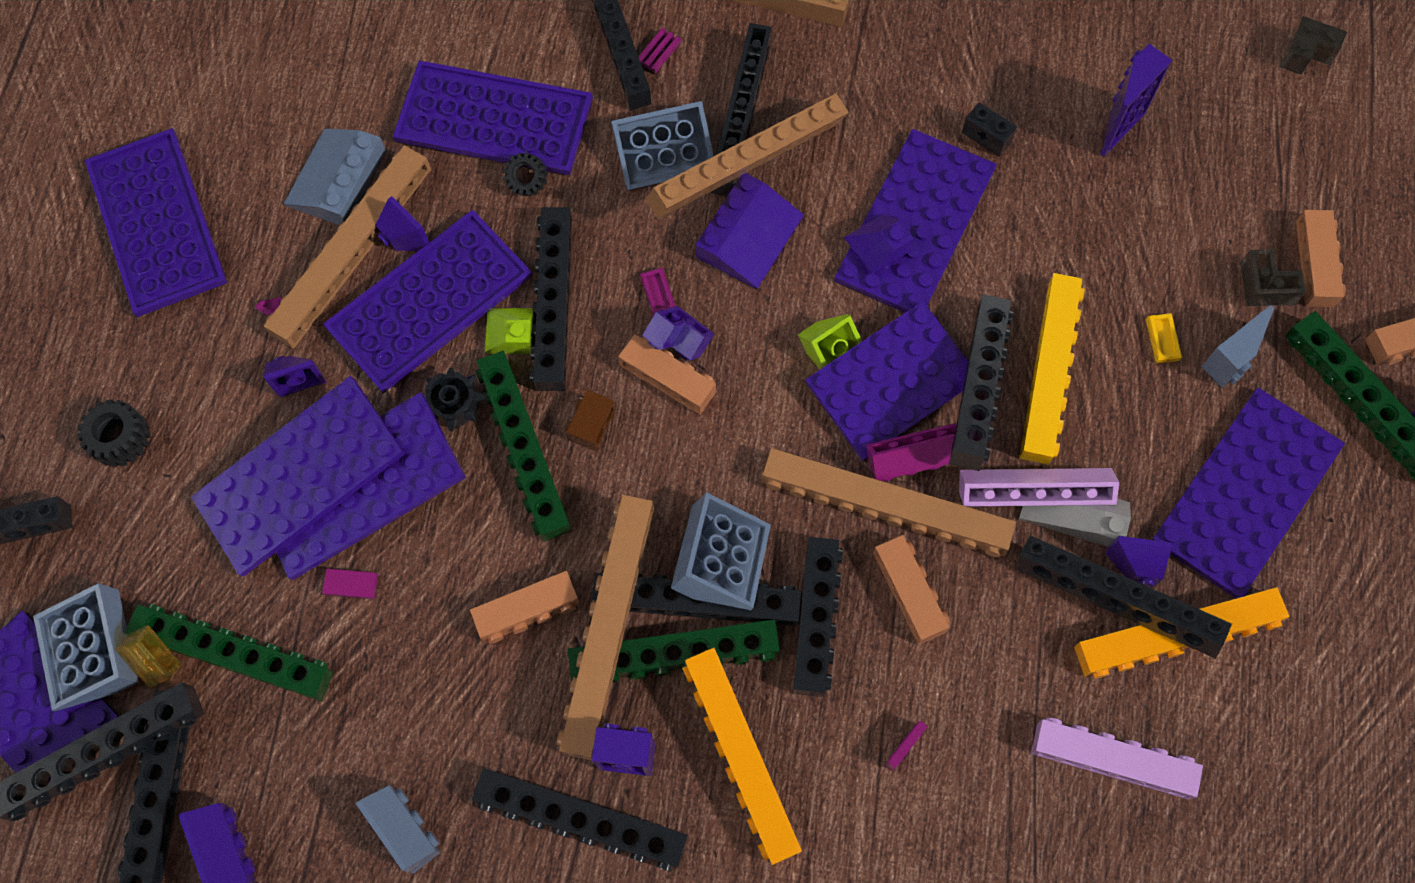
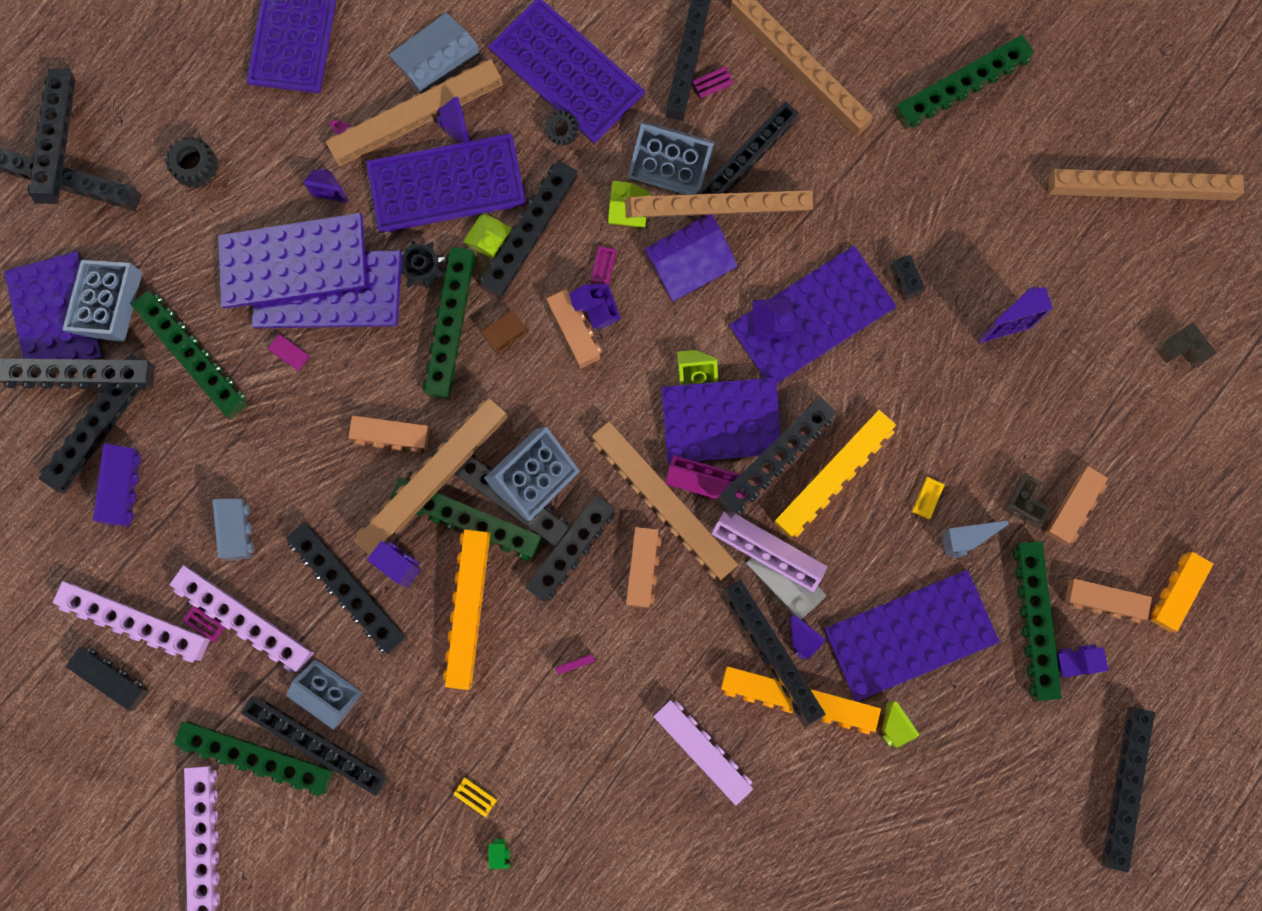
camera: 30 degrees right, 10 degrees up
(148, 656) = (137, 329): clear yellow brick -> none
(640, 218) = (617, 212): none -> lime slope
(1307, 595) = (897, 726): none -> lime slope

